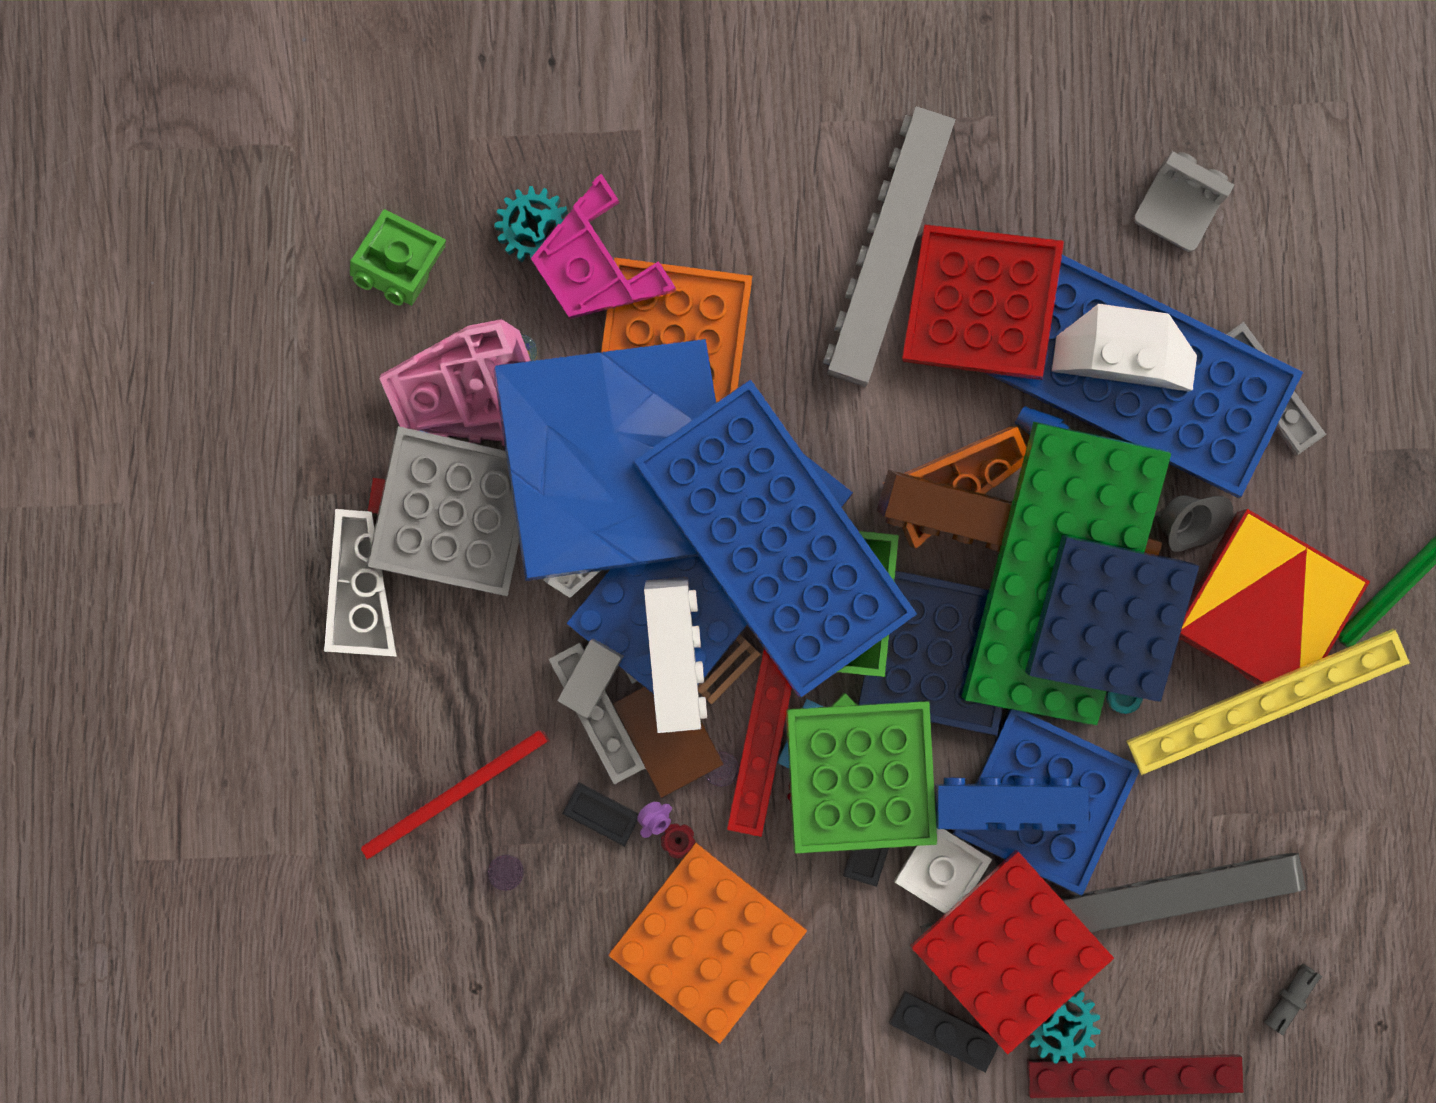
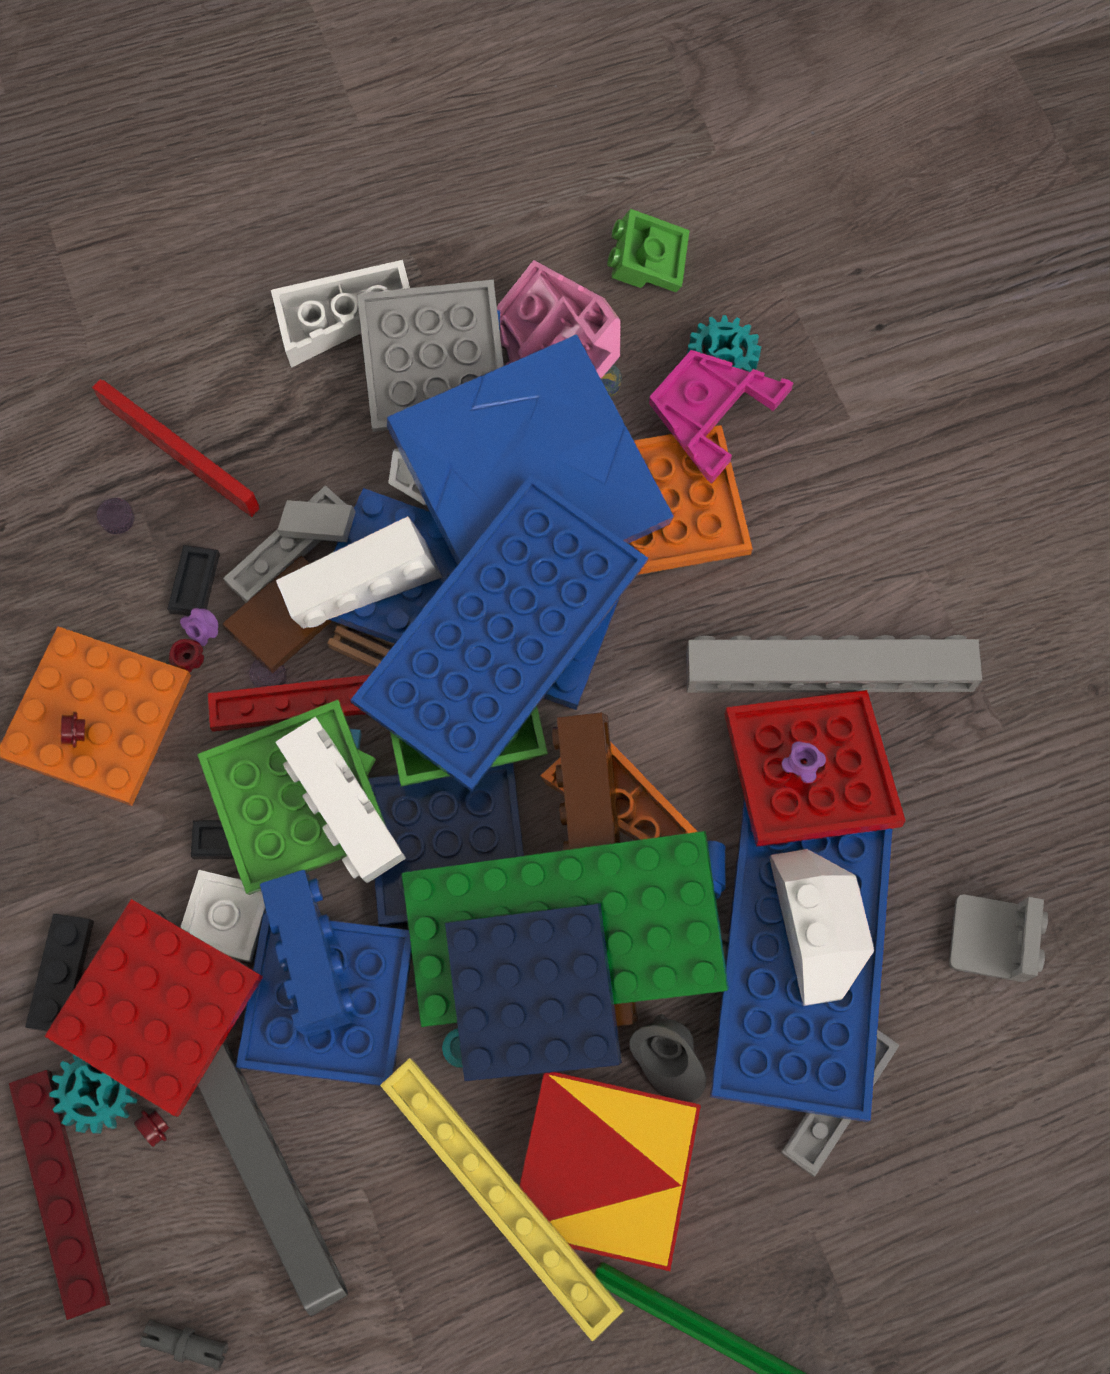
camera: 75 degrees right, 15 degrees down
(727, 964) = (72, 729): none -> dark red plate
(892, 734) = (340, 800): none -> white wedge
(982, 299) = (806, 752): none -> medium lavender plate
(1108, 982) = (152, 1127): none -> dark red plate

